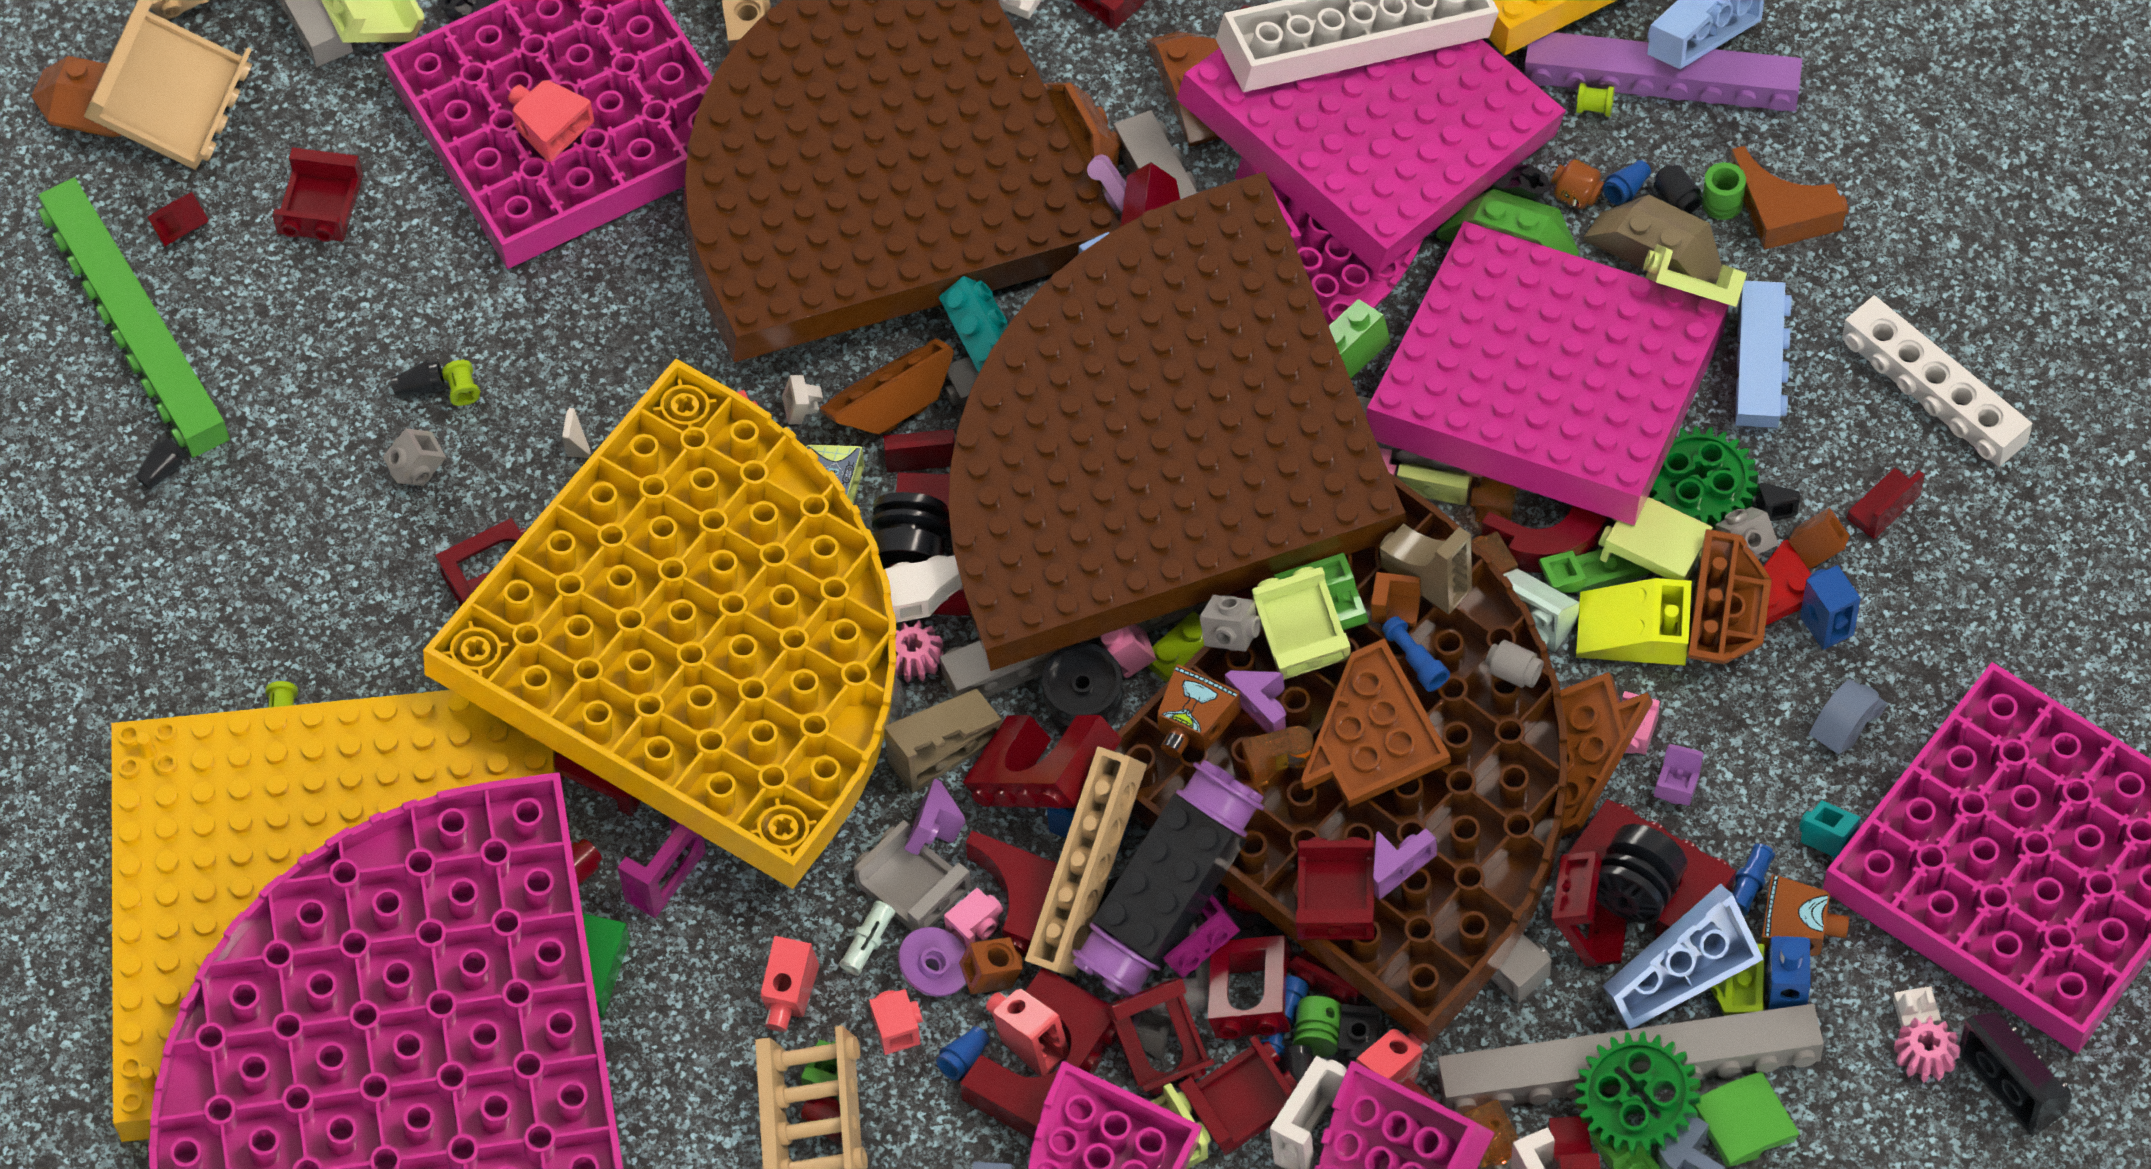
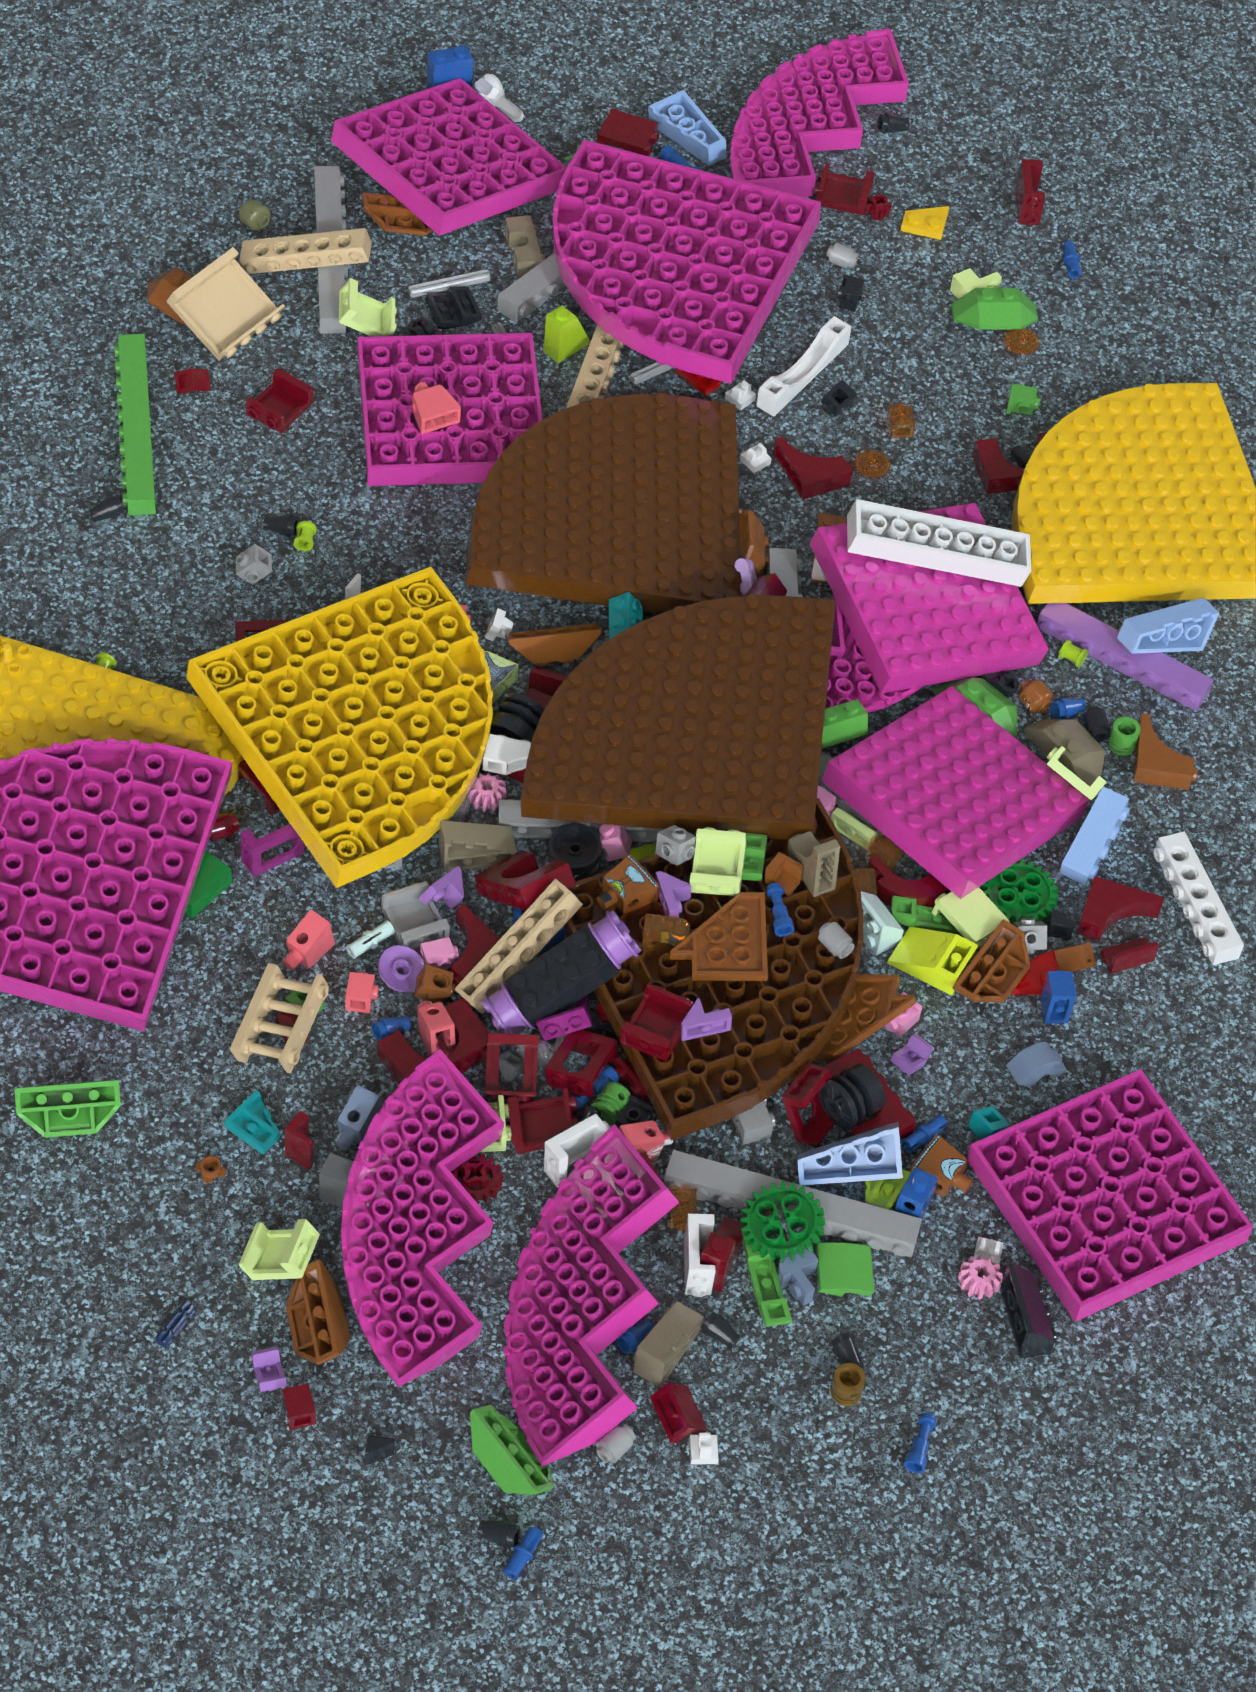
camera: 15 degrees right, 5 degrees down
(1826, 437) = (1112, 902): none -> dark red arch

